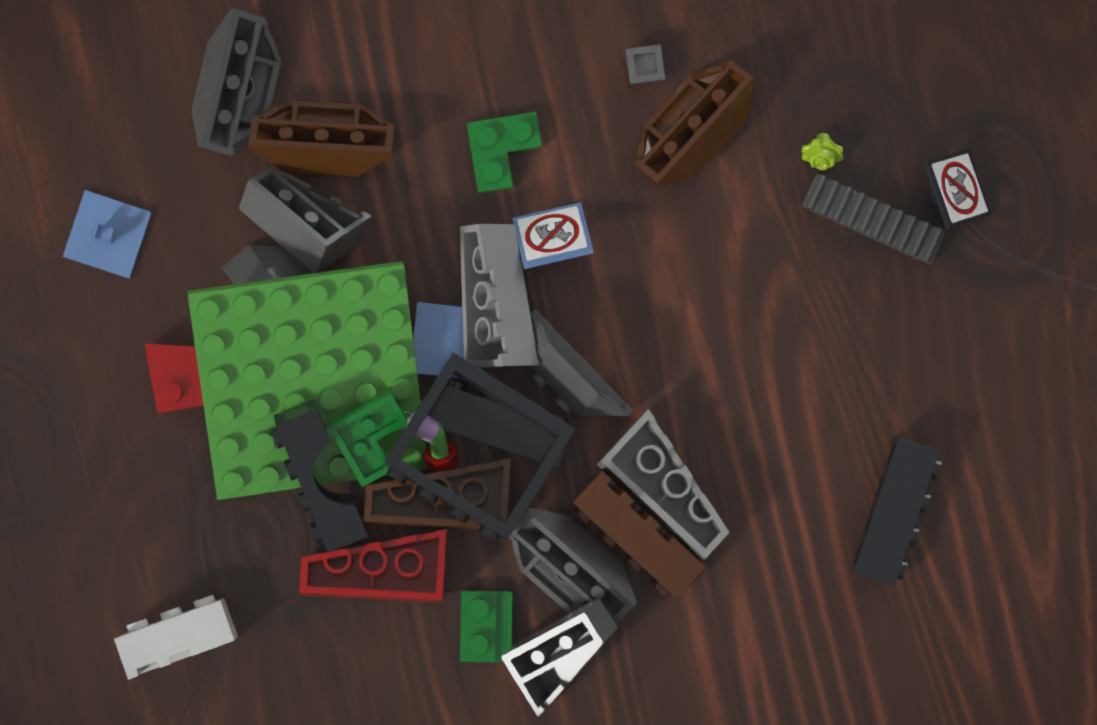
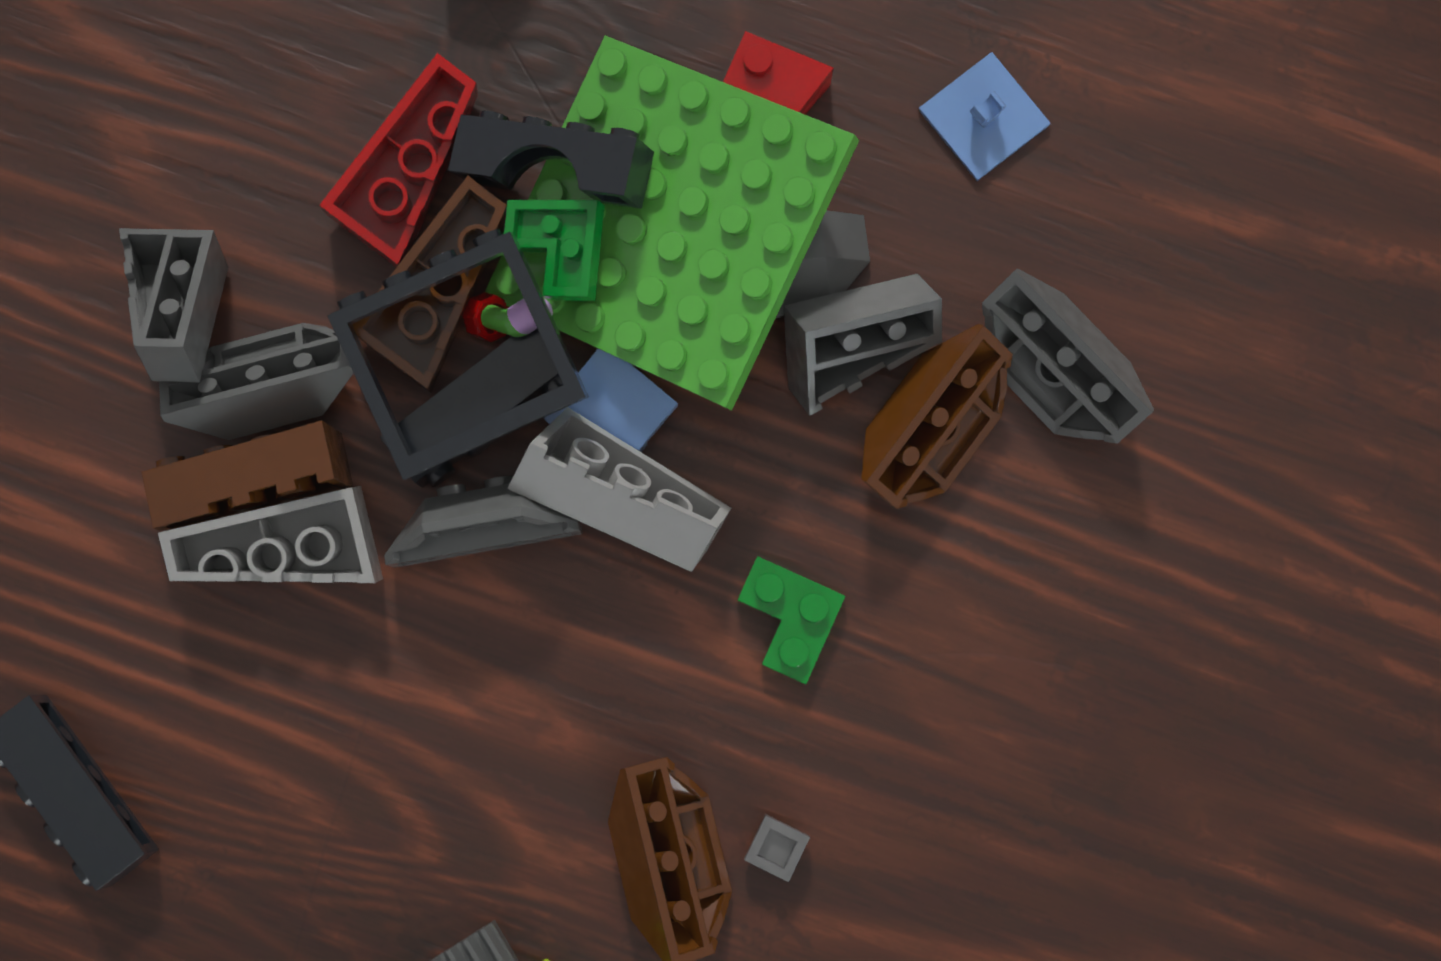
camera: 125 degrees right, 5 degrees down
(485, 625) = (268, 244): green plate -> none
(552, 235) = (649, 607): piece -> none

